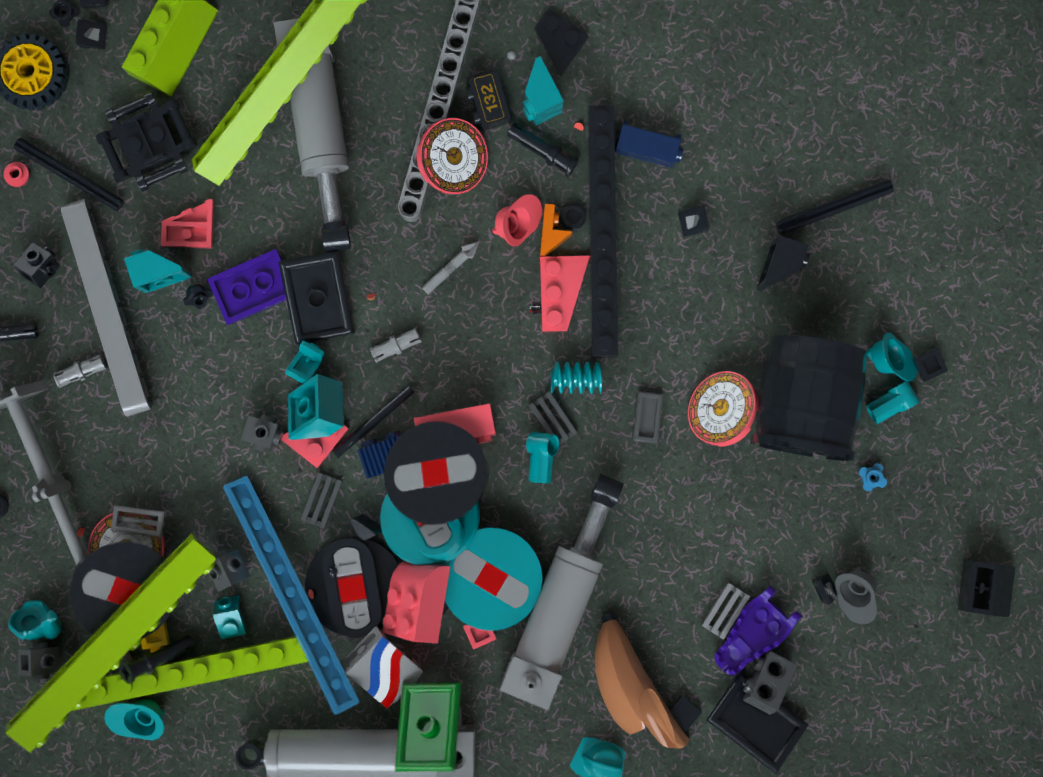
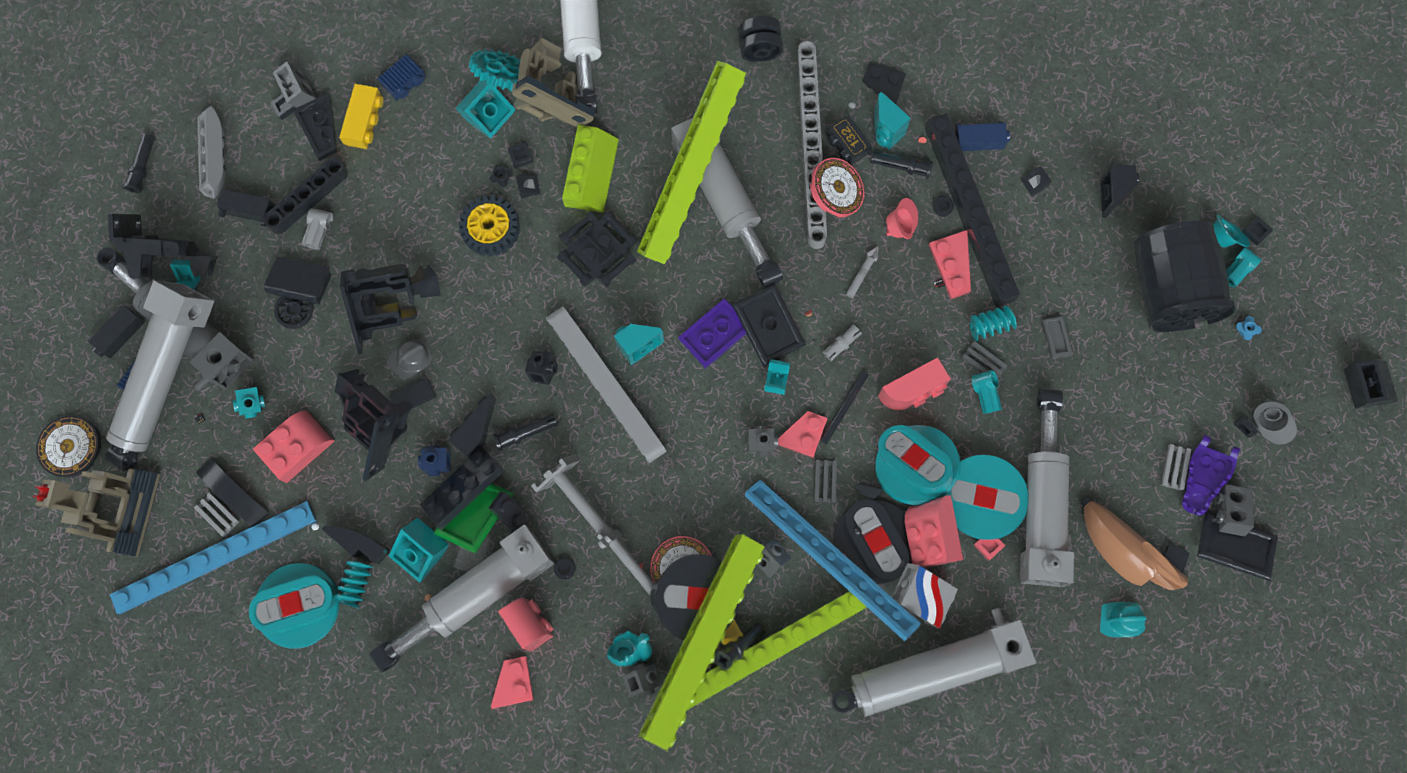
camera: 10 degrees left, 10 degrees down
(23, 176) = (506, 309): coral plate -> none
(68, 174) = (543, 293): black axle -> none
(79, 371) = (600, 439): light grey pin -> none
(136, 720) = (738, 704): teal piece -> none
(160, 523) = (691, 541): light grey tile -> none
(190, 228) = (652, 304): coral wing -> none
(197, 296) = (674, 353): black plate -> none
(229, 617) = (784, 597): teal bracket -> none
(315, 408) = (798, 409): teal slope -> none
(374, 454) = (865, 429): dark blue brick -> none
(428, 727) = (983, 627): green piece -> none
(435, 473) = (917, 421): black piece -> none
(551, 238) = (931, 224): orange slope -> none
(723, 408) = (1115, 309): tile -> none
(834, 207) = (1137, 139): black axle -> none

